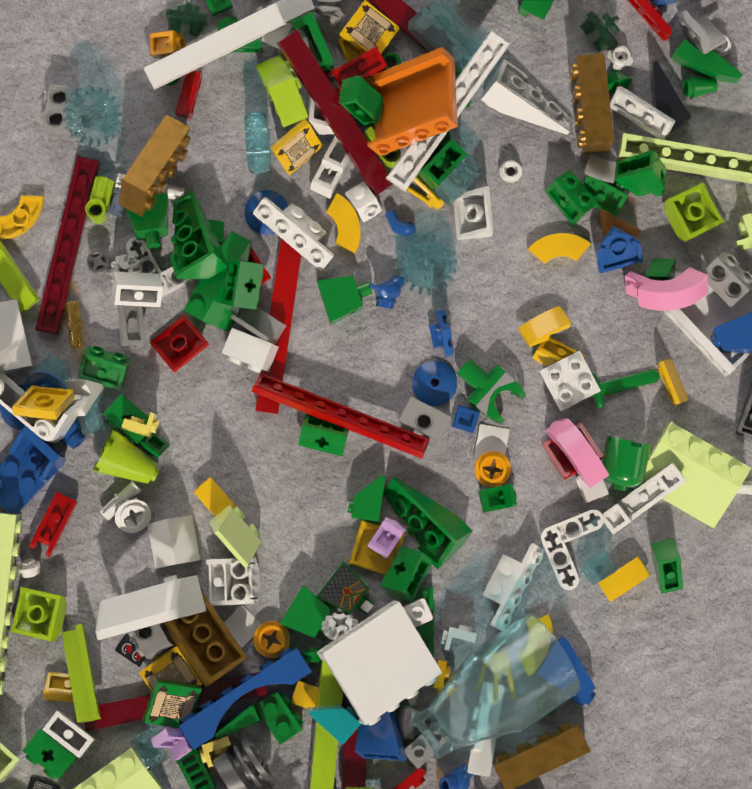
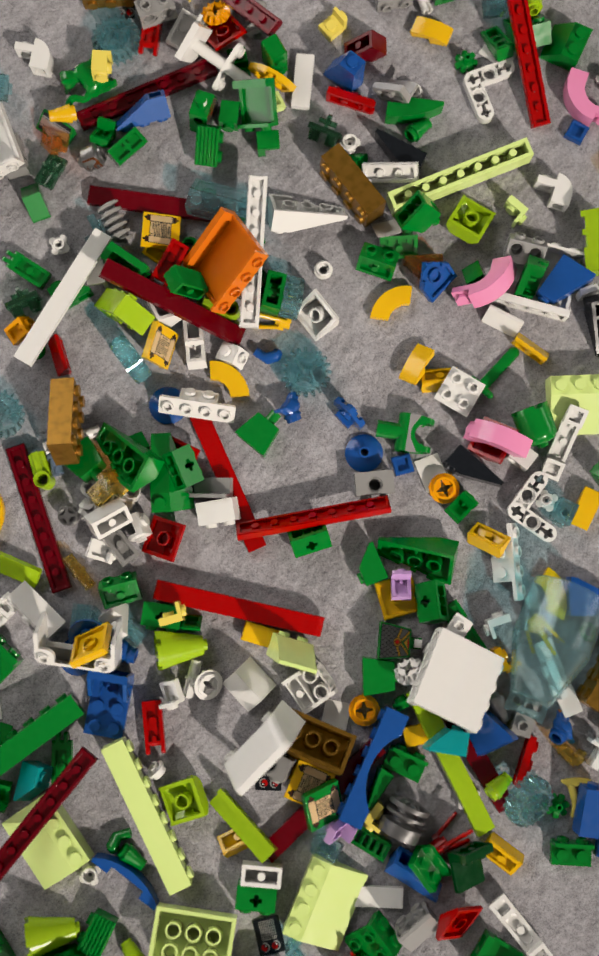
camera: 30 degrees left, 0 degrees up
(91, 502) = (171, 693): none -> white bracket
(107, 316) = (99, 551): none -> white bracket
(153, 256) = (106, 487): none -> clear yellow brick
(164, 318) = (141, 527): none -> white bracket
(211, 460) = (239, 608): none -> red beam
(503, 547) = (488, 539): none -> yellow slope
(530, 461) = (466, 465): none -> black slope
(588, 553) = (549, 506): none -> white plate
(660, 336) = (502, 321): none -> white slope
(716, 310) = (531, 277): none -> green hinge

